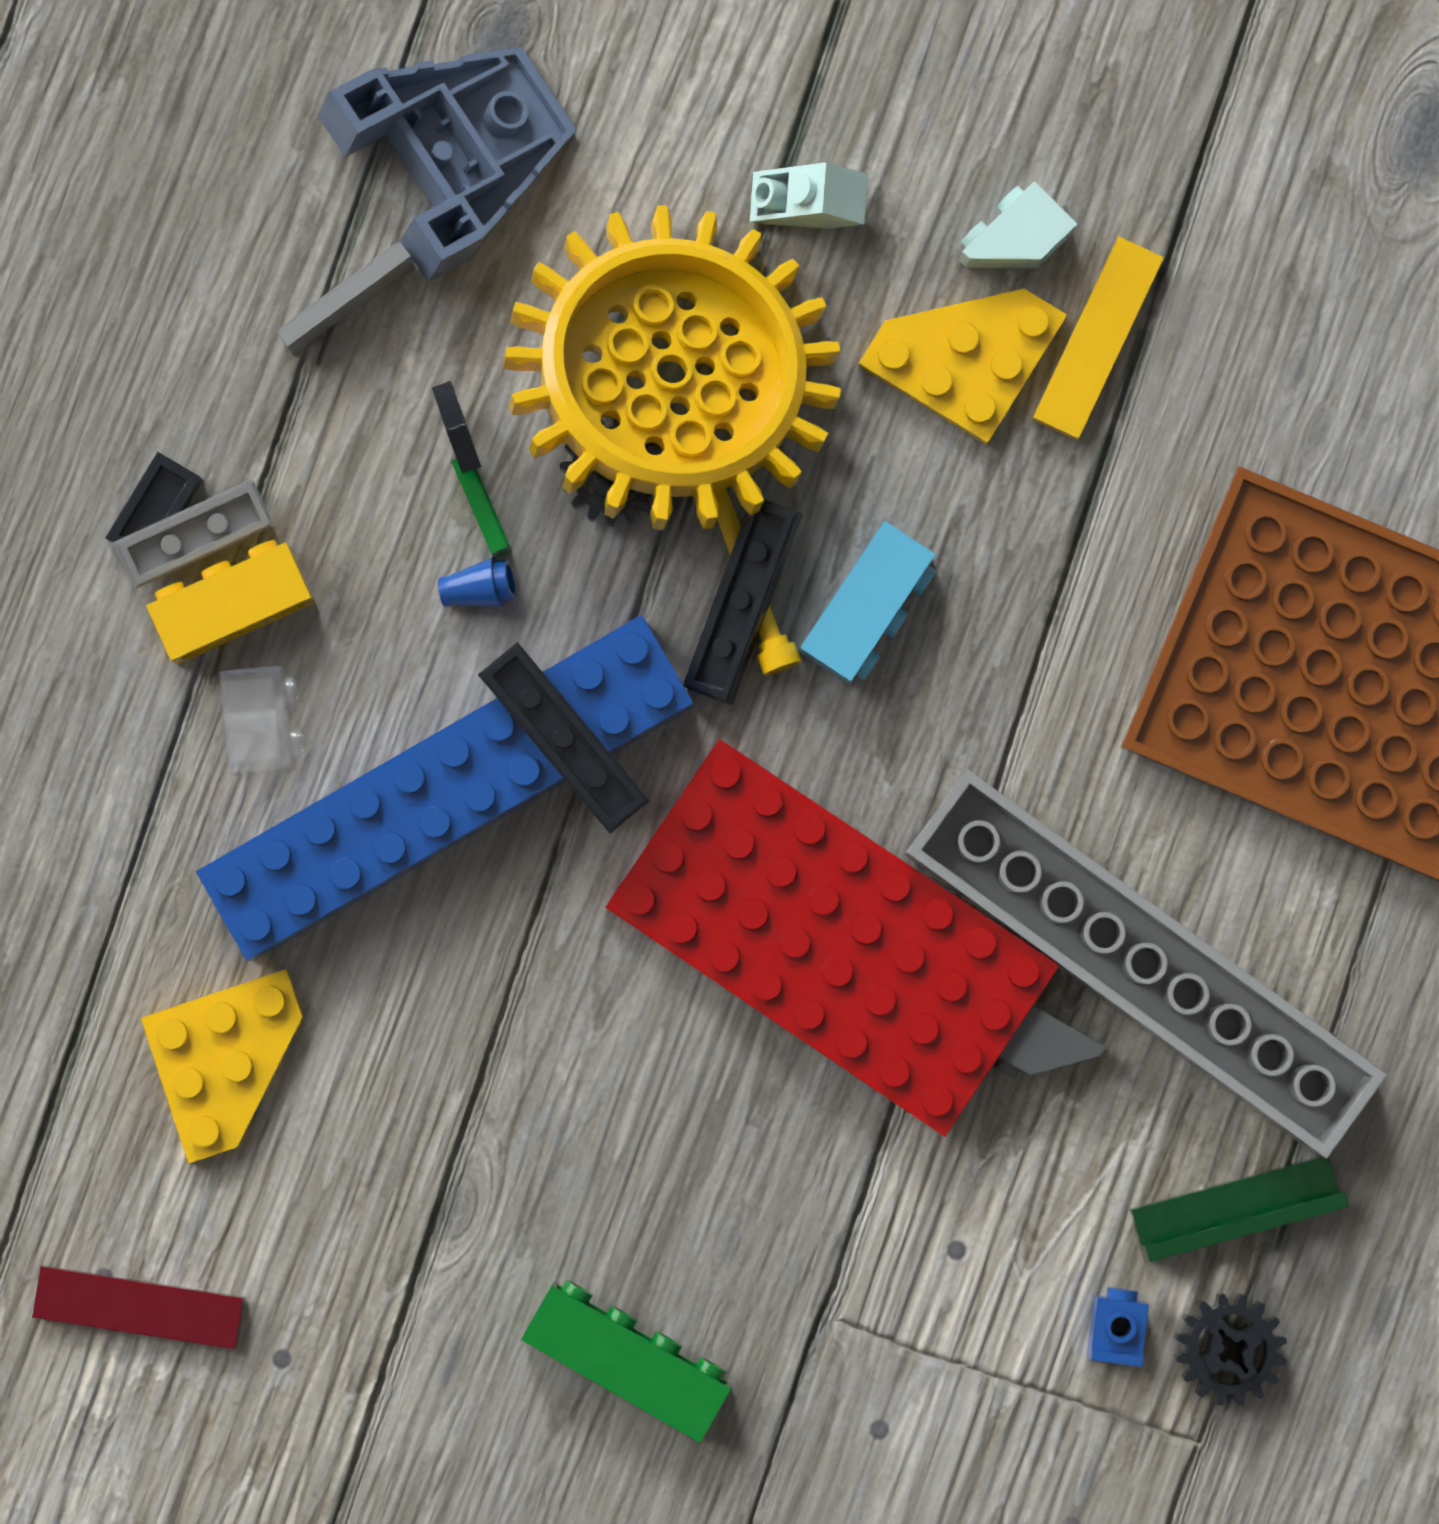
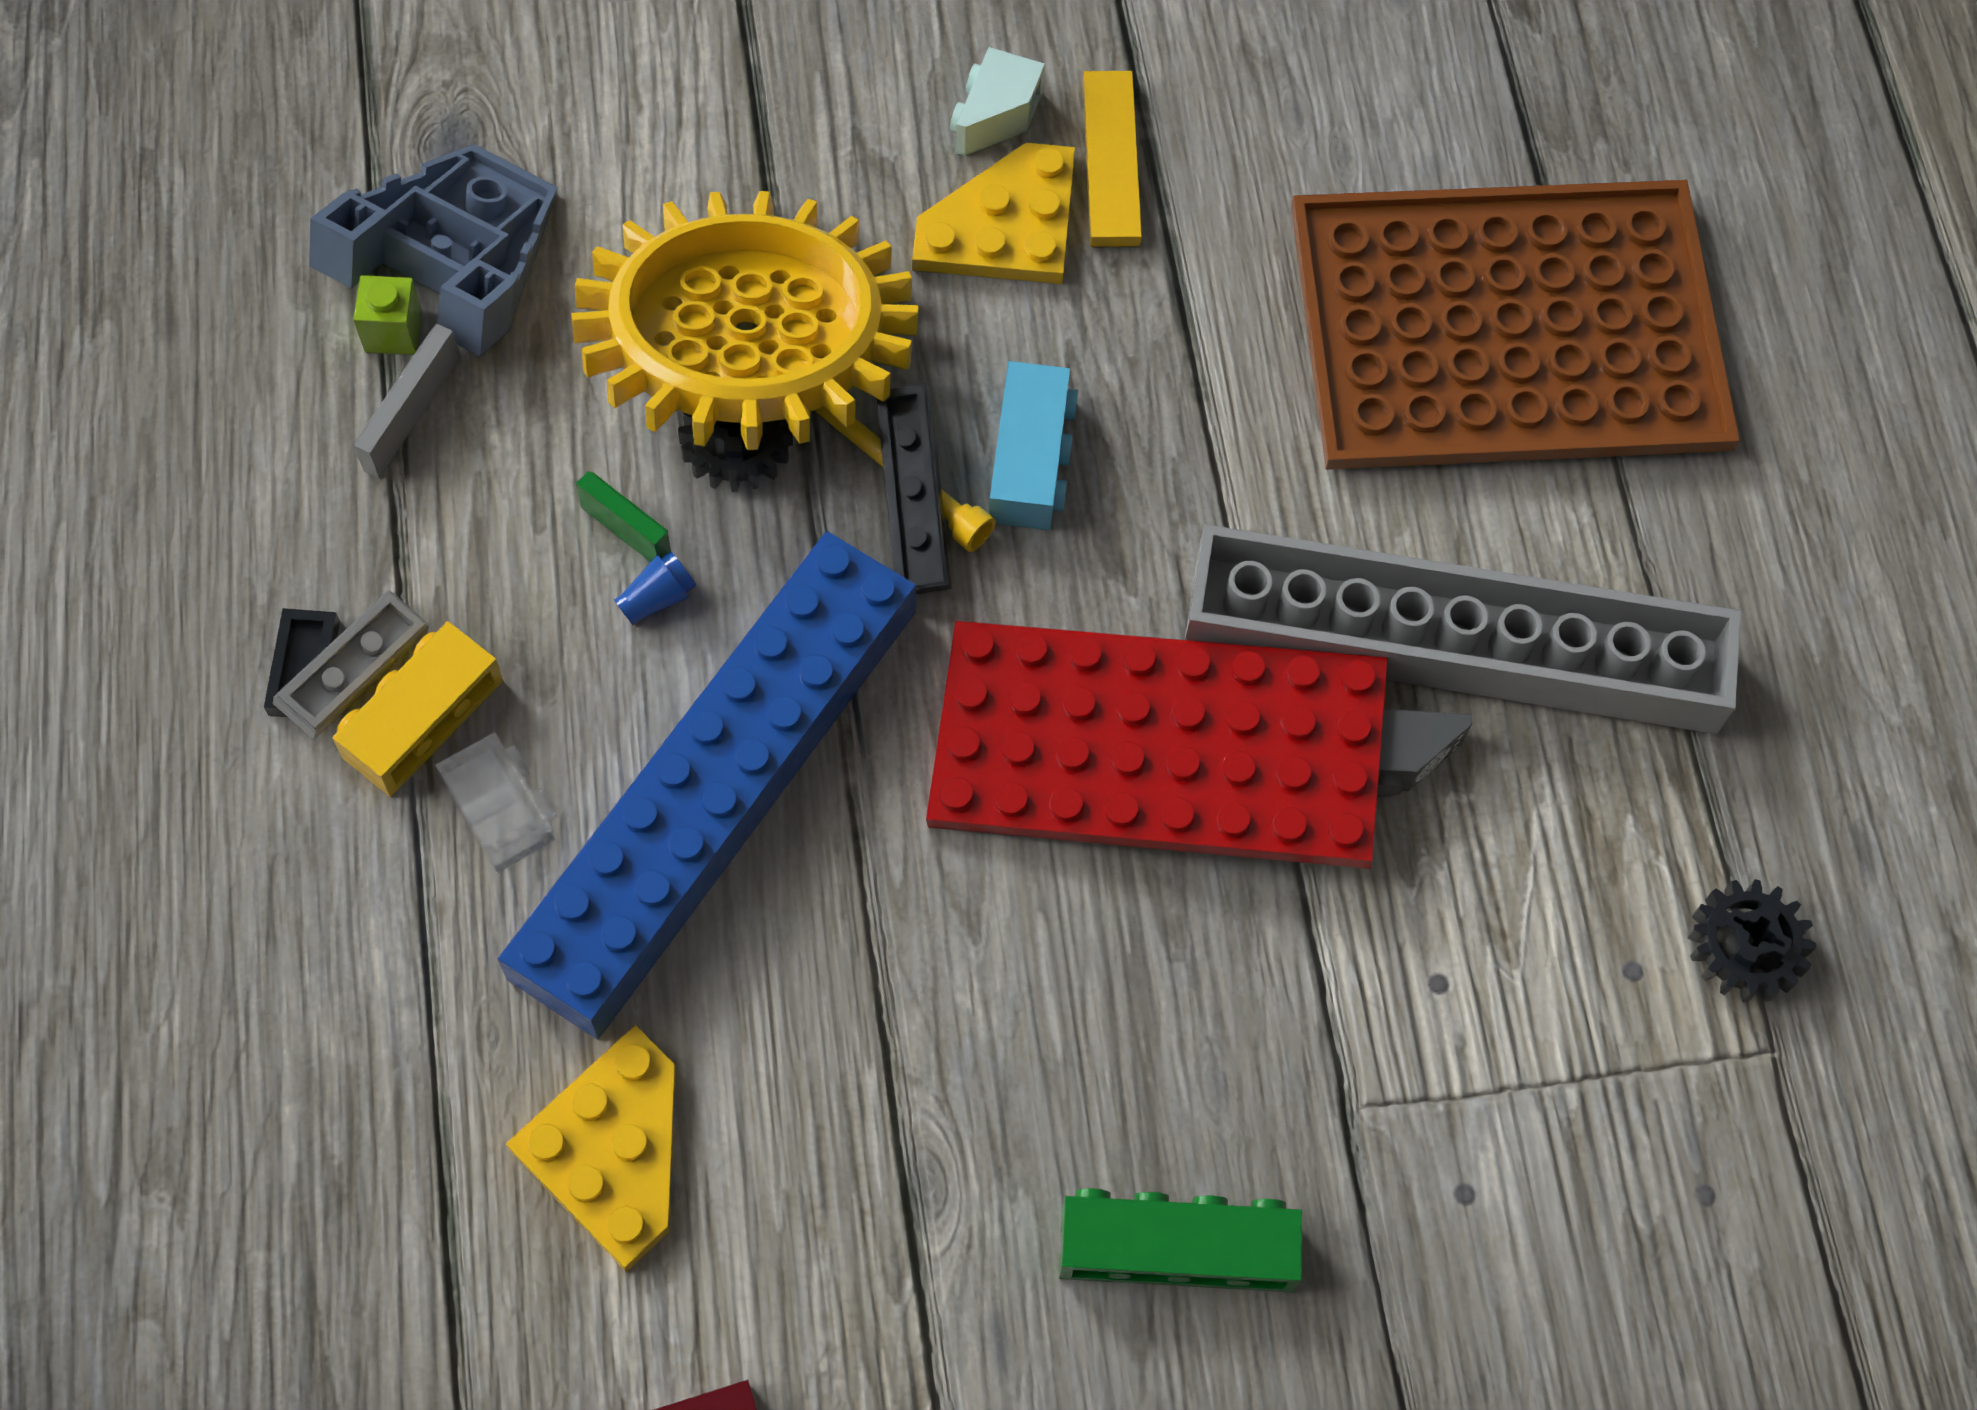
camera: 30 degrees left, 20 degrees down
(364, 203) = (388, 315): none -> lime brick
(456, 427) = (567, 450): black tile -> none
(563, 738) = (809, 662): black tile -> none
(809, 196) = (796, 146): light aqua slope -> none
(1106, 1346) = (1633, 991): blue brick -> none
(1237, 1208) = (1674, 813): dark green fence -> none

